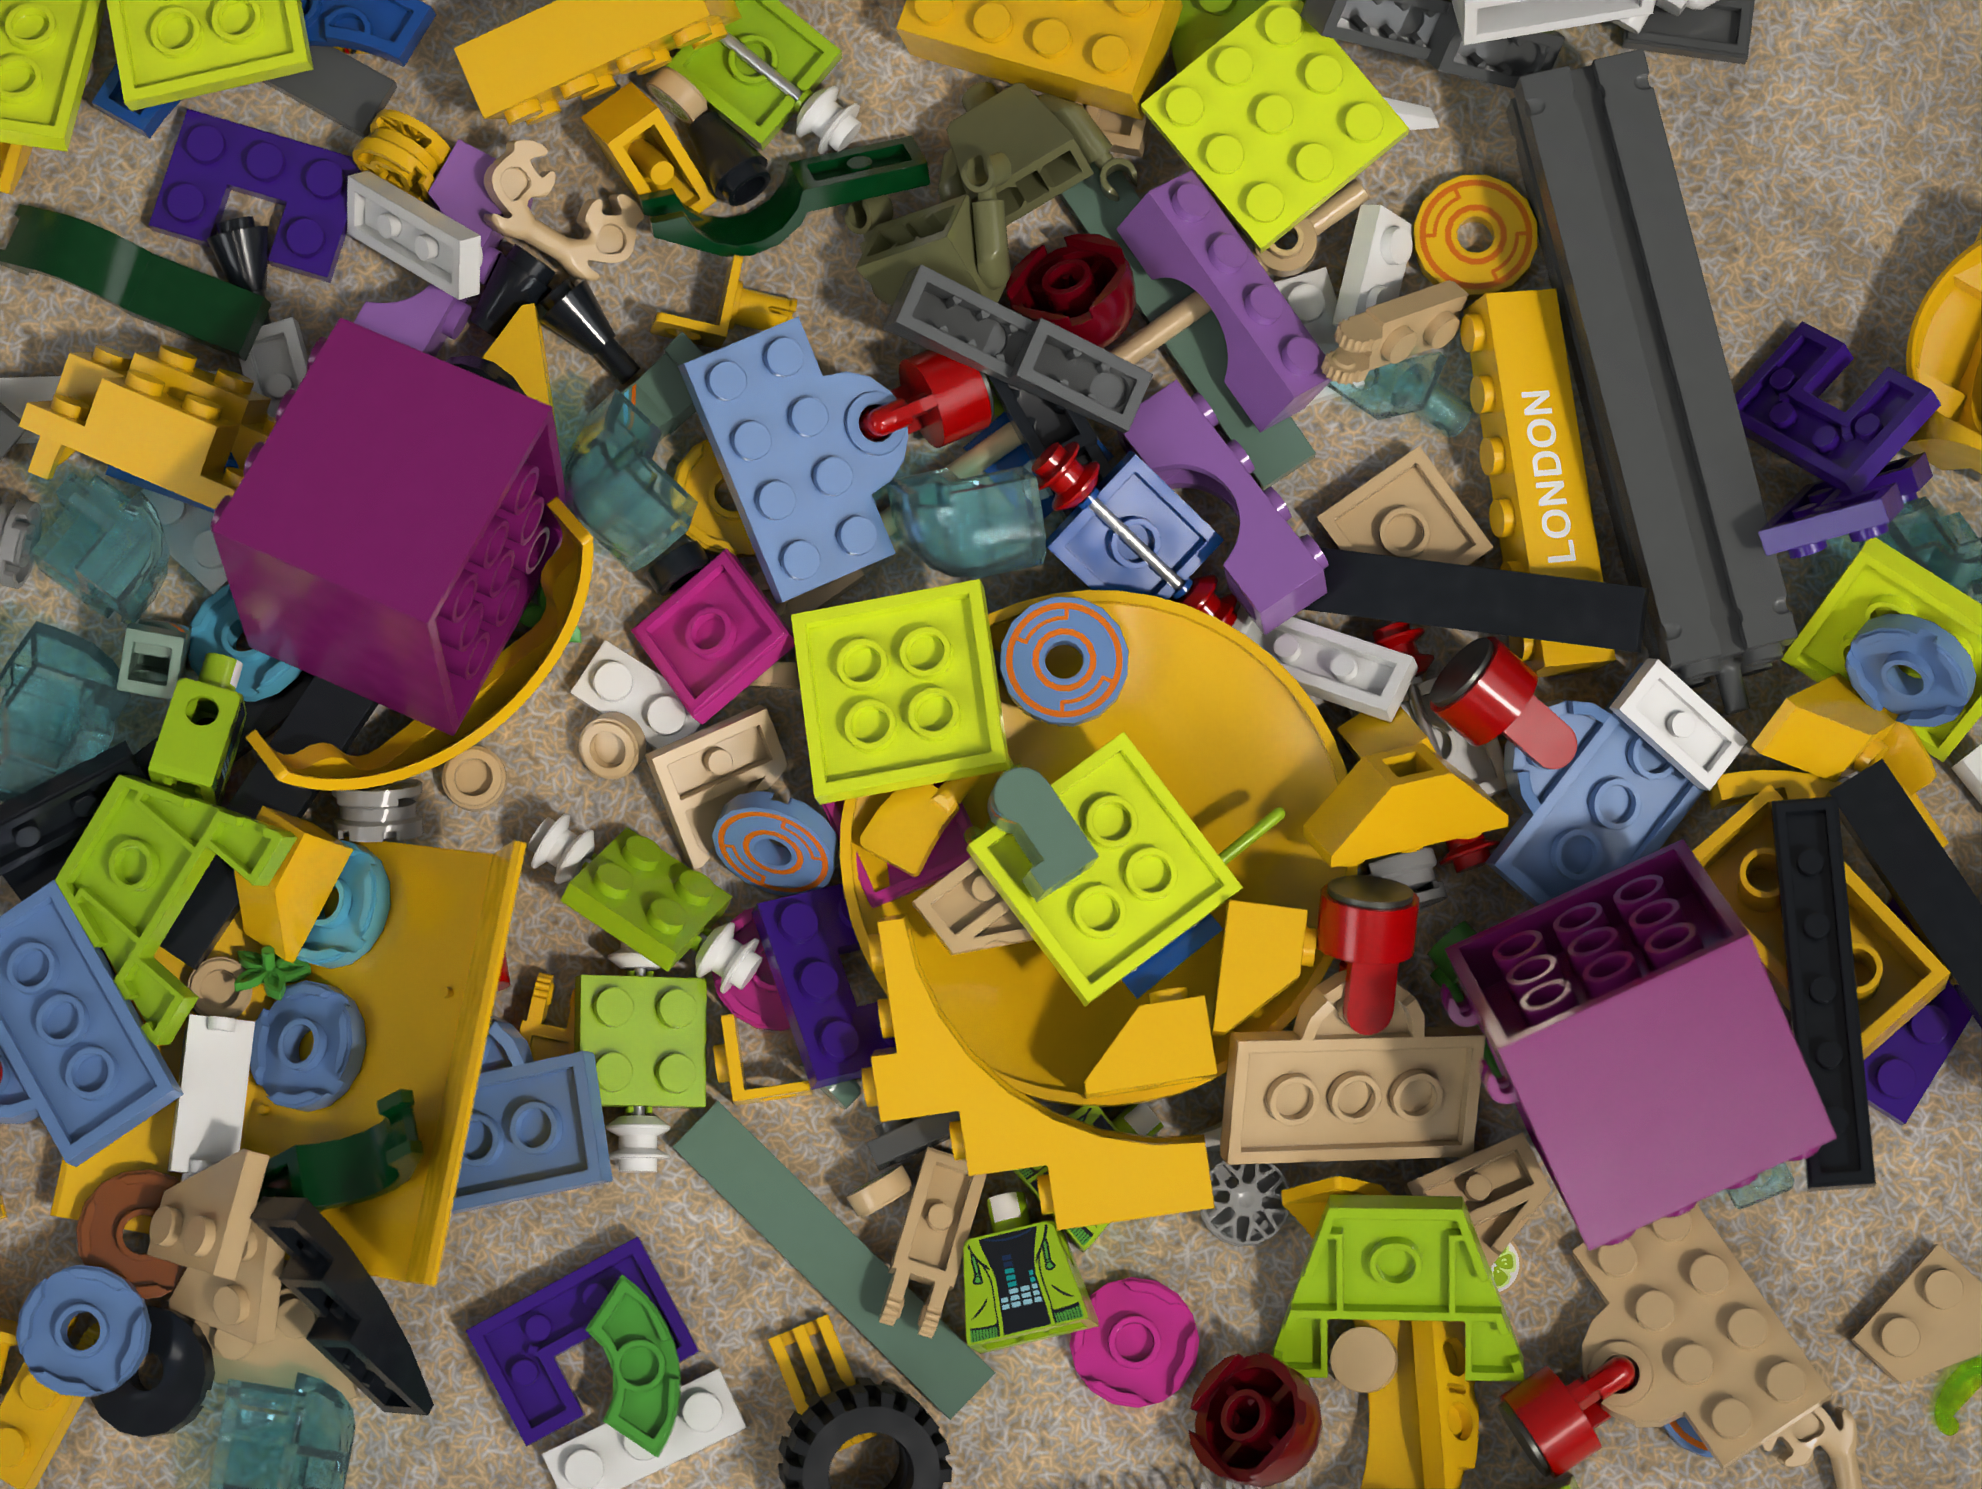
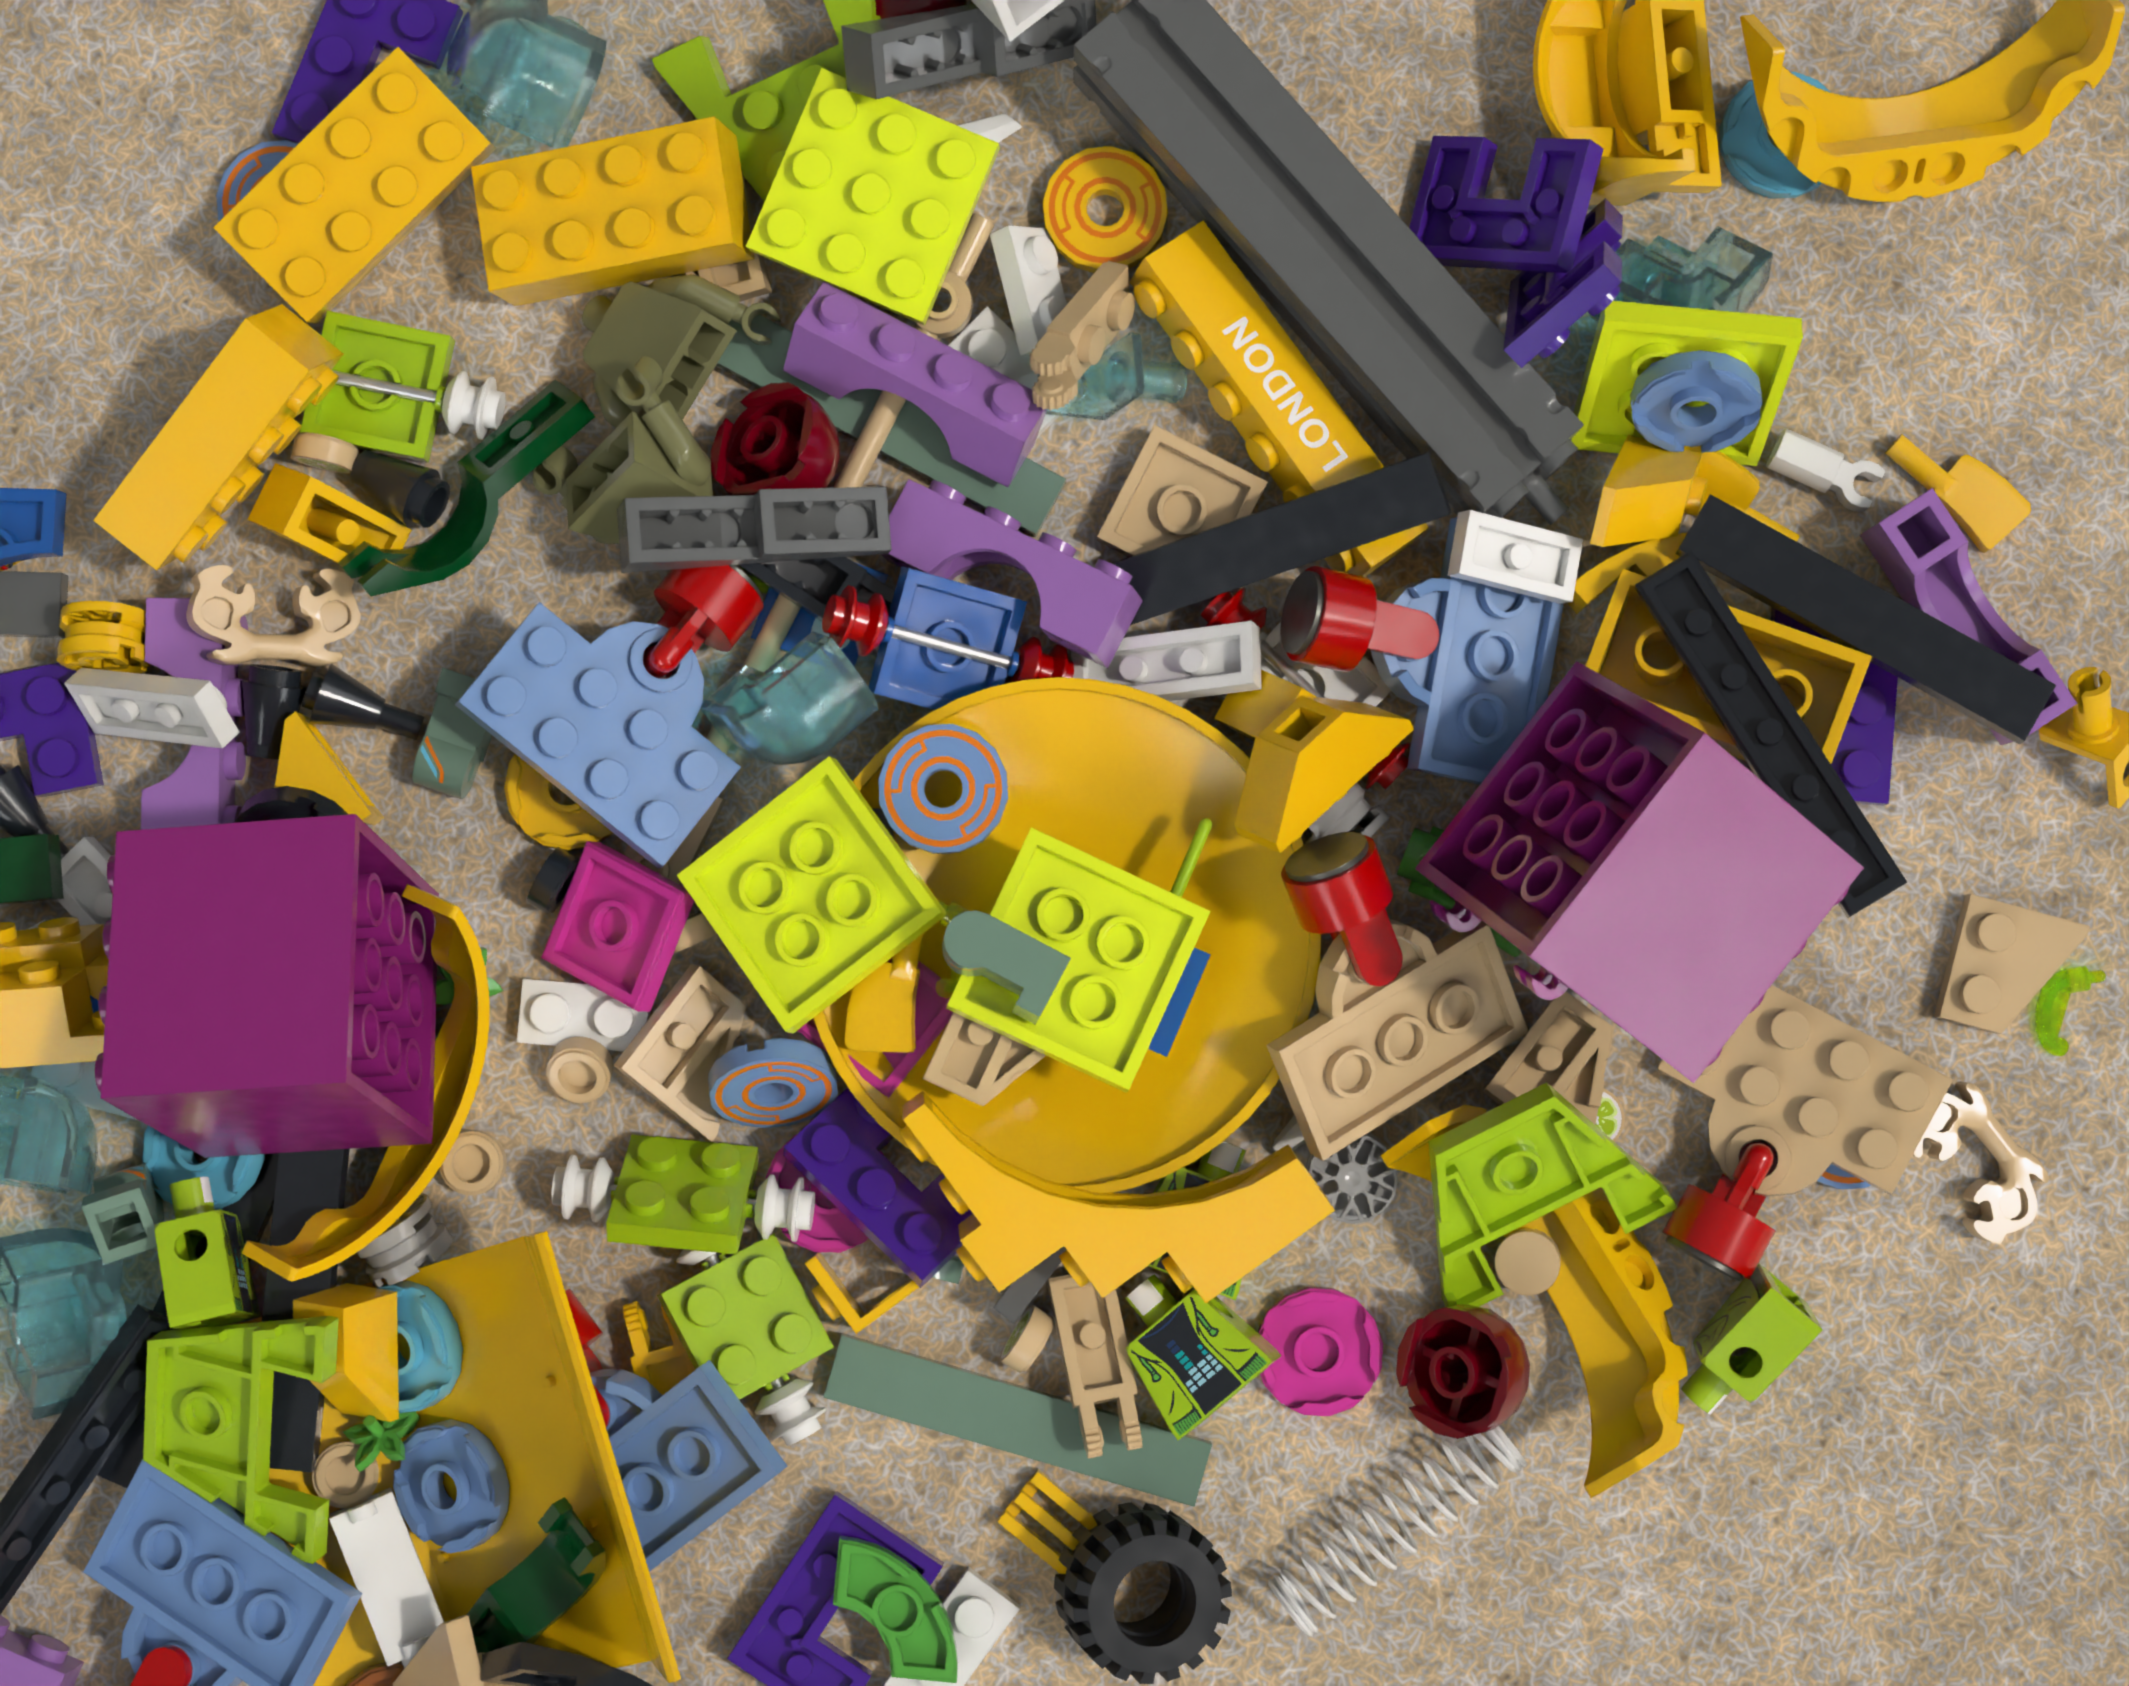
camera: 30 degrees left, 5 degrees up
(619, 489) = (462, 843): clear light blue brick -> none
(736, 306) = (481, 617): yellow bracket -> none
(1157, 1047) = (1209, 1093): yellow slope -> none
(1258, 959) = (1257, 968): yellow slope -> none

